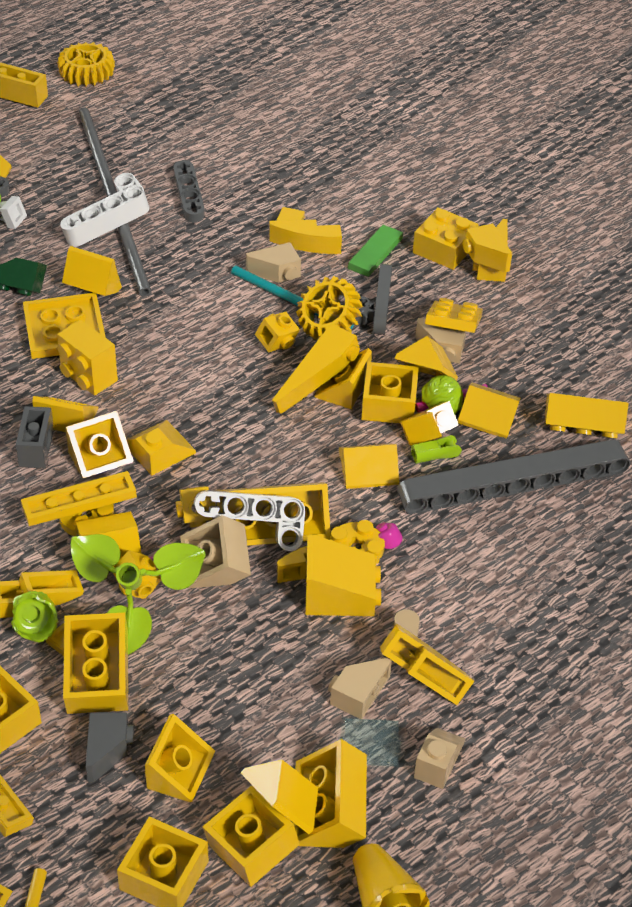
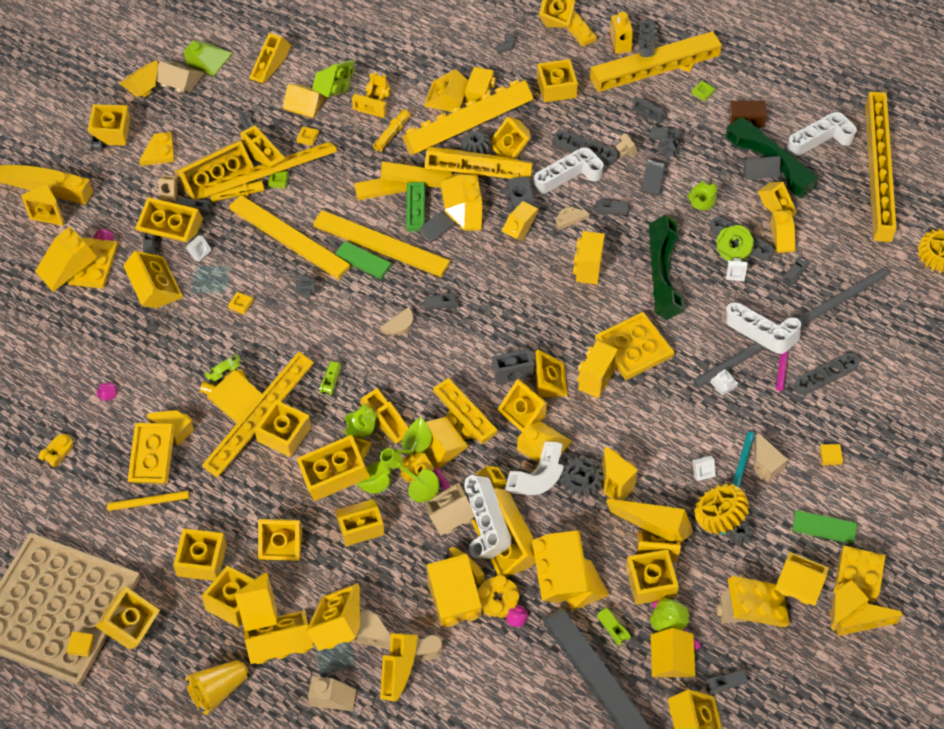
camera: 75 degrees right, 10 degrees up
(40, 171) = (795, 270): none -> dark grey bar
(91, 272) = (685, 342): yellow slope -> none
(107, 742) = (281, 496): dark grey slope -> none
(156, 268) = (724, 382): none -> white tile
(165, 222) = (781, 371): none -> dark pink bar
(188, 657) = (359, 522): none -> yellow slope
(207, 447) = (542, 477): none -> white arch
(225, 420) = (583, 474): none -> dark grey gear
(244, 382) = (618, 475): none -> yellow slope
(259, 312) = (704, 468): none -> white tile
(277, 332) = (678, 482): yellow brick -> none
(307, 235) = (811, 473): yellow slope -> none
(334, 709) = (336, 618): none -> yellow slope
(350, 460) = (560, 566): none -> yellow slope
(382, 299) = (763, 545): dark grey beam -> none
(428, 356) = (692, 596): yellow slope -> none
(429, 423) = (633, 613): yellow slope -> none
(439, 276) = (801, 579): none -> yellow slope
(534, 375) = (729, 681): none -> dark grey bar

